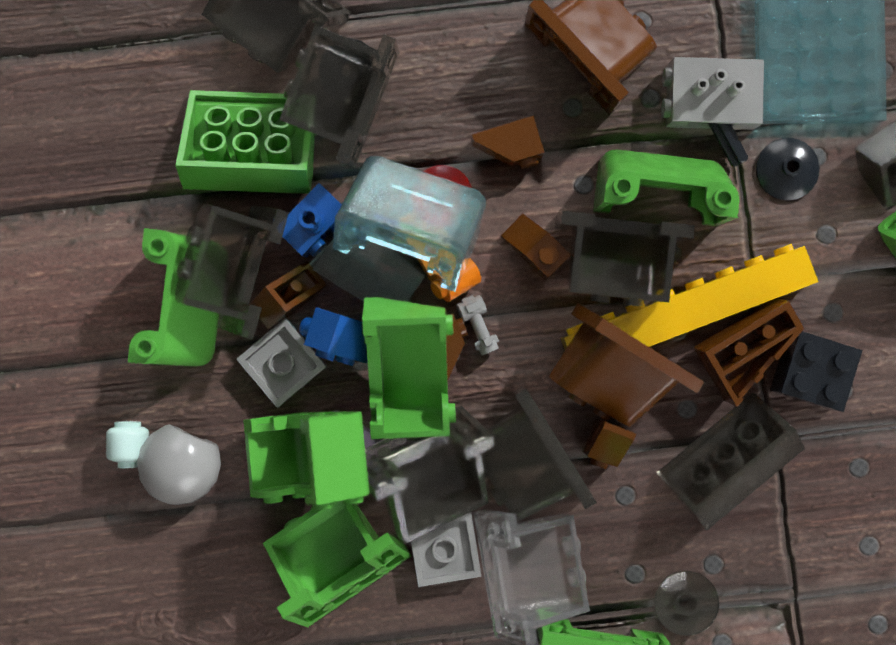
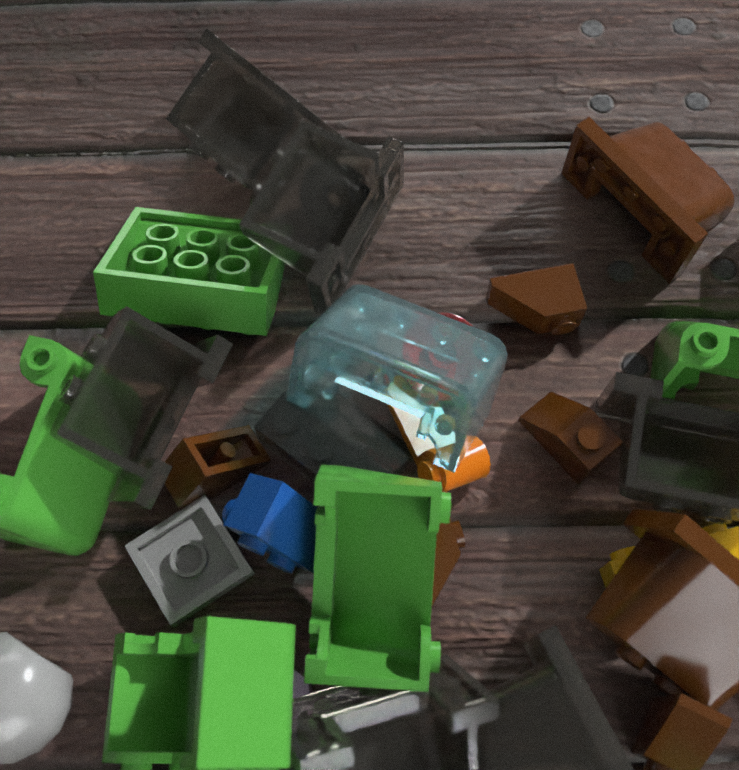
camera: 10 degrees right, 20 degrees down
(311, 221) = (258, 371): blue brick -> none
(471, 309) = (473, 512): light grey bar -> none

